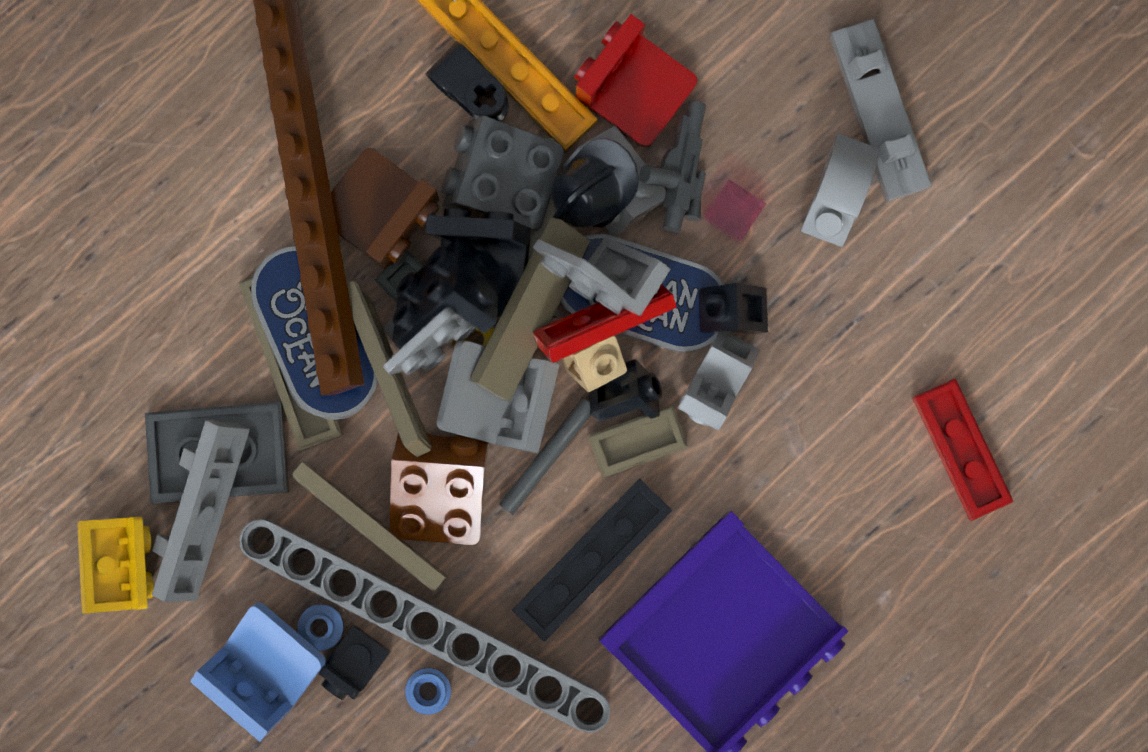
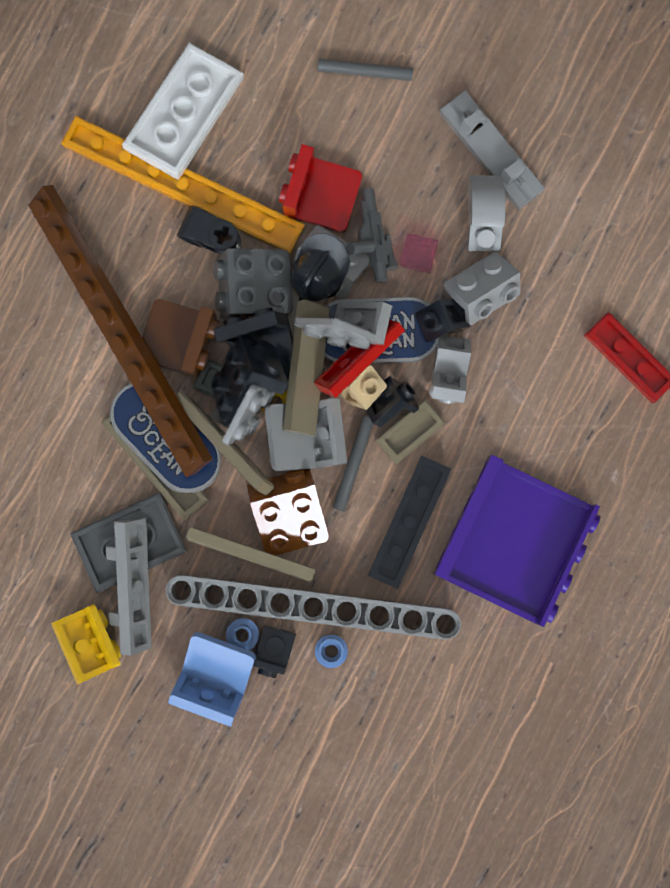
camera: 15 degrees left, 0 degrees up
(803, 287) = (484, 287): none -> light grey bracket

